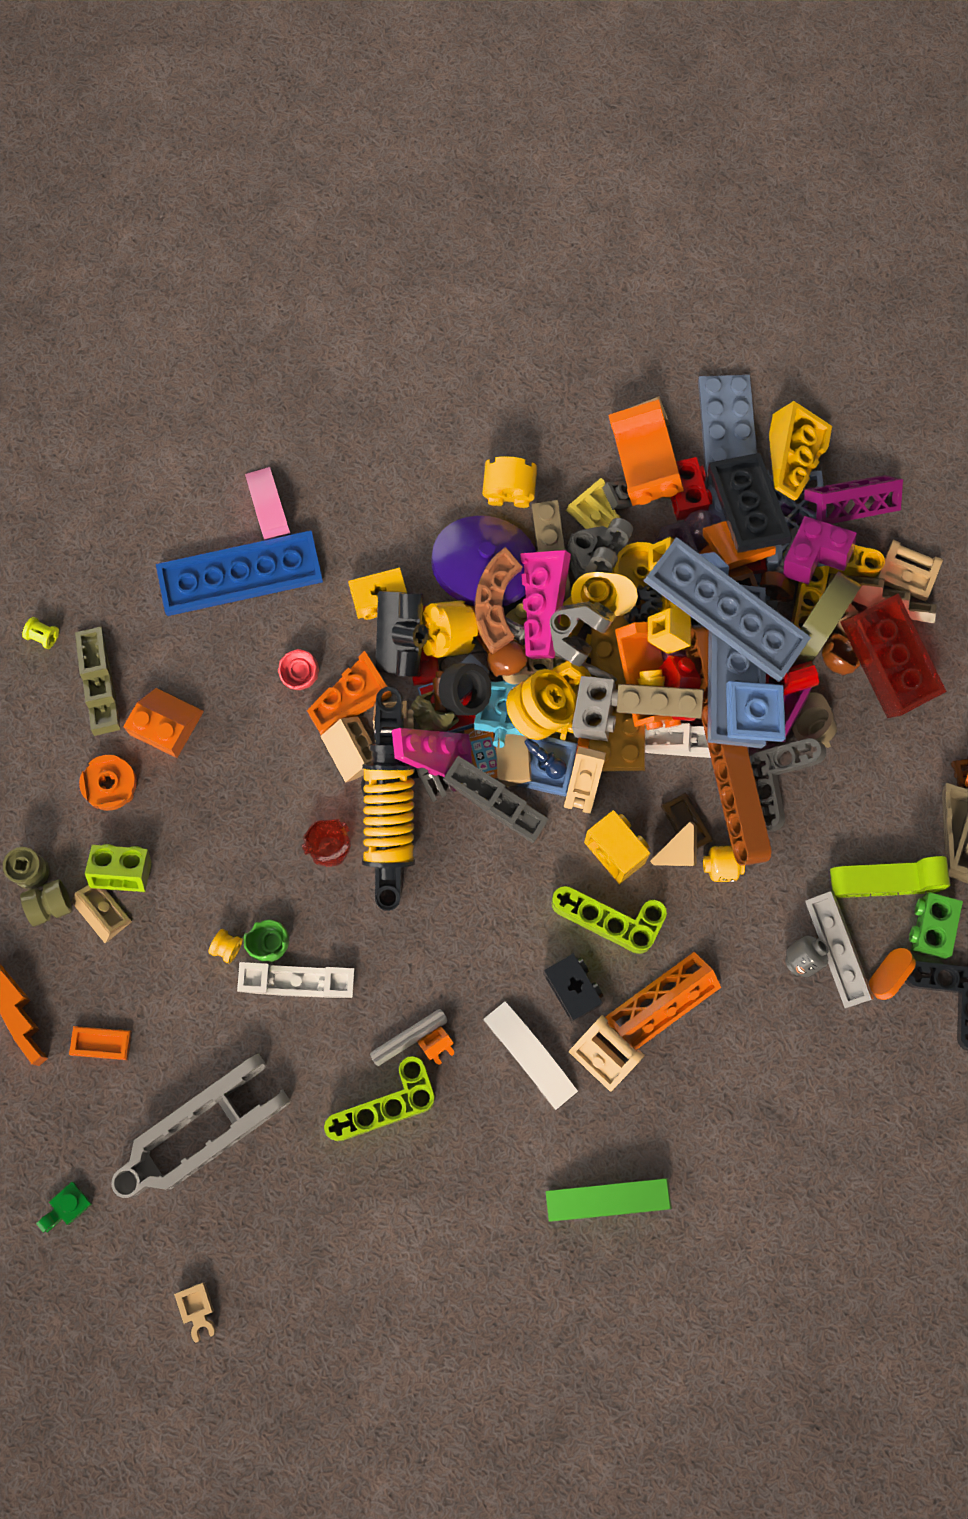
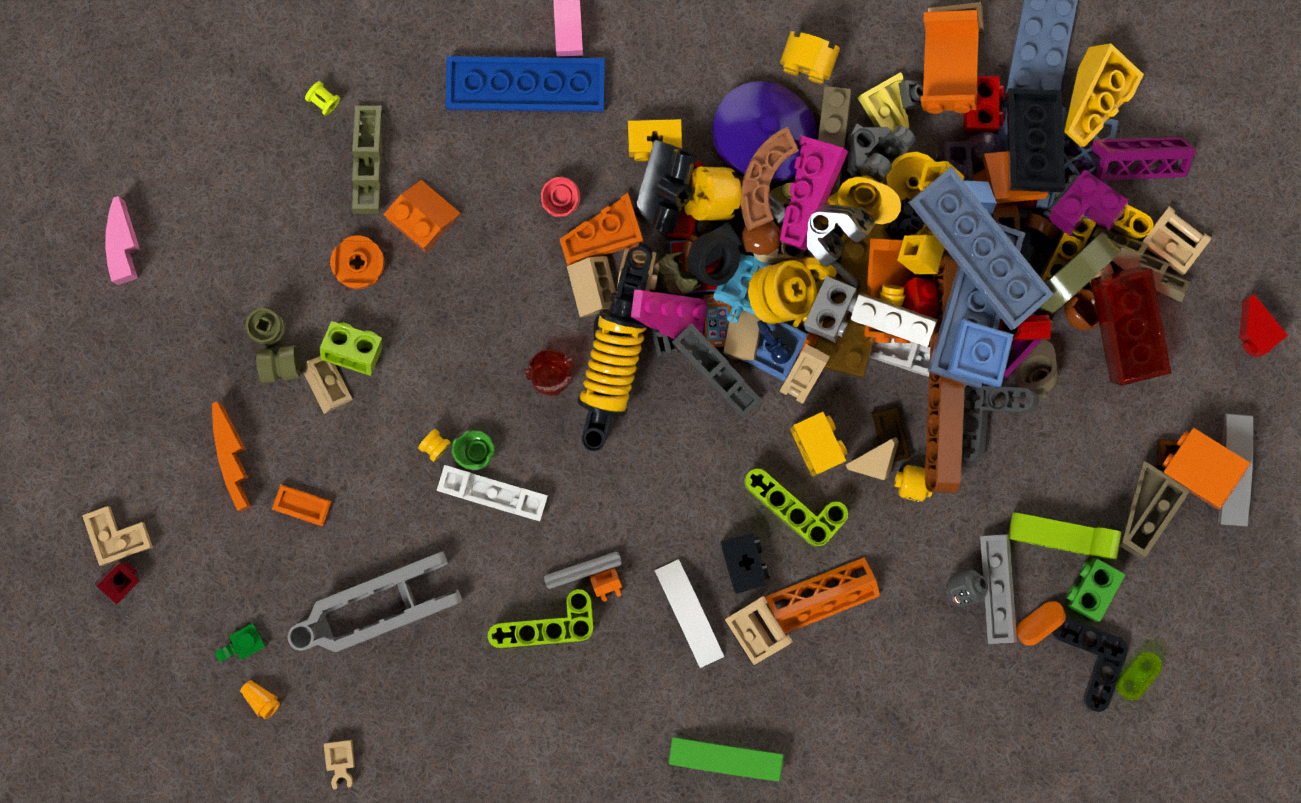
camera: 10 degrees right, 10 degrees up
(96, 1263) = (260, 699): none -> light orange cone

